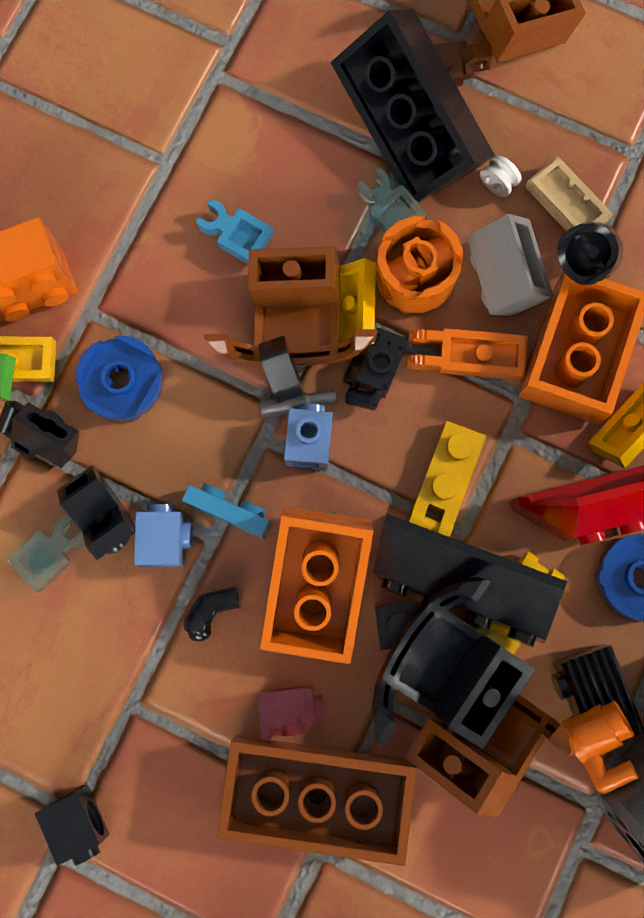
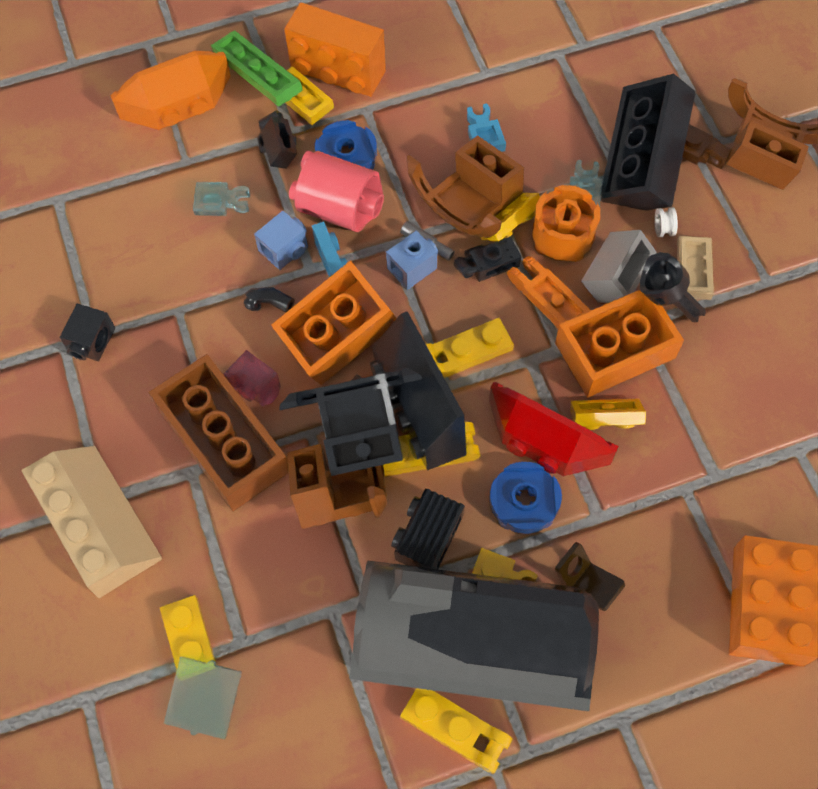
camera: 45 degrees right, 15 degrees down
(97, 513) = (264, 198): black brick -> none
(169, 438) = (337, 191): none -> coral cylinder
(280, 369) = (432, 210): black piece -> none
(596, 734) = (402, 531): orange piece -> none

